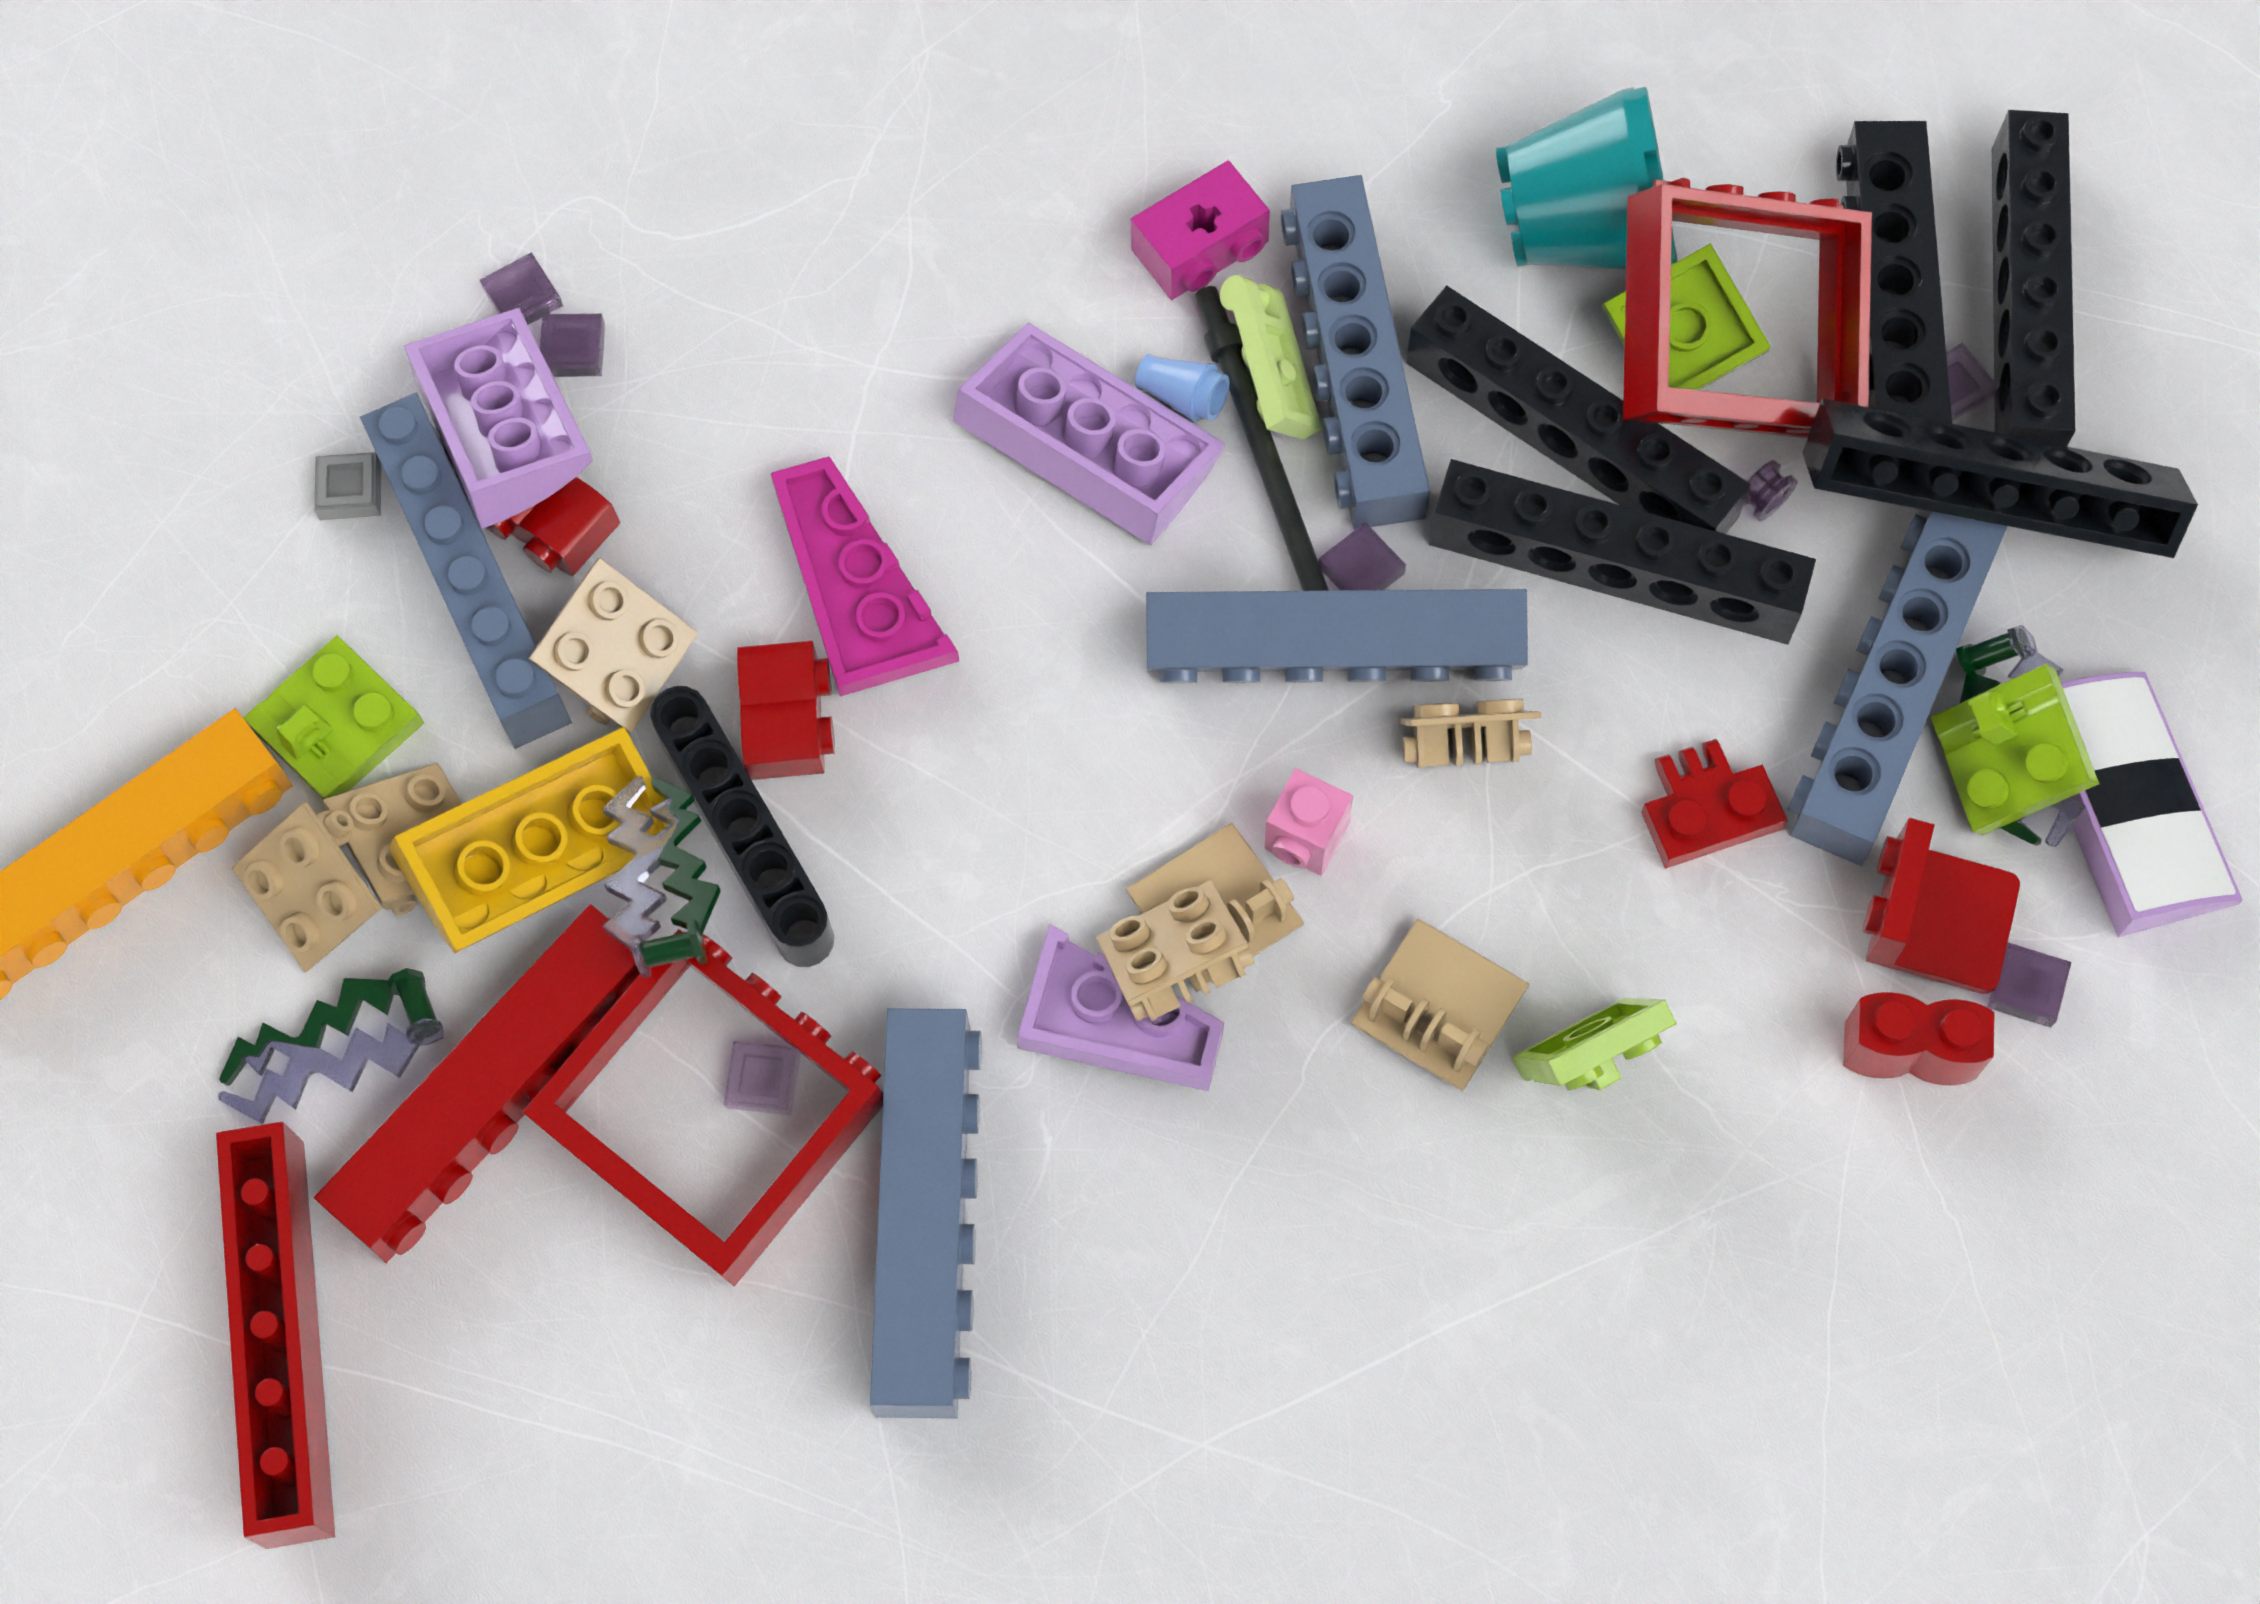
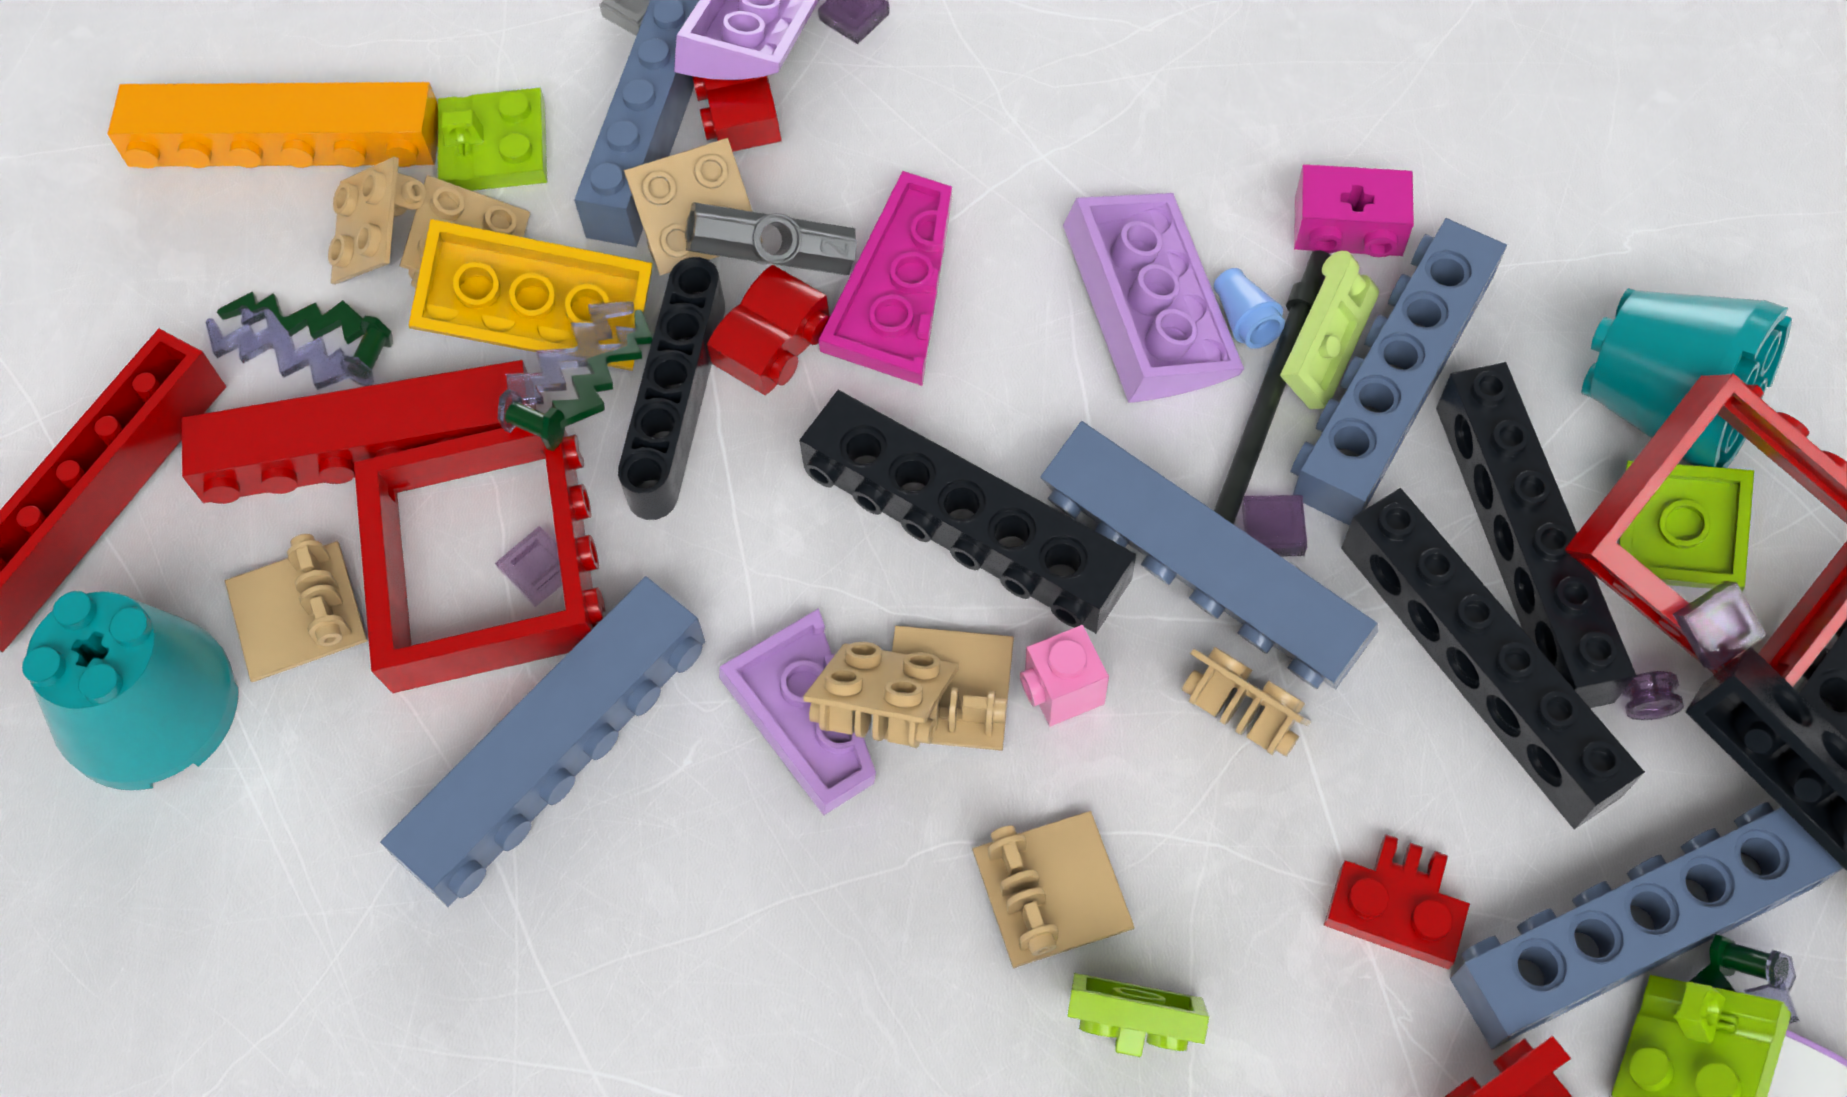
camera: 40 degrees right, 5 degrees down
(522, 1501) = (129, 688): none -> teal cone
(579, 1284) = (295, 609): none -> tan hinge
(689, 637) = (738, 236): none -> dark grey piece
(1125, 720) = (951, 483): none -> black brick
(1786, 397) = (1719, 625): none -> clear purple tile

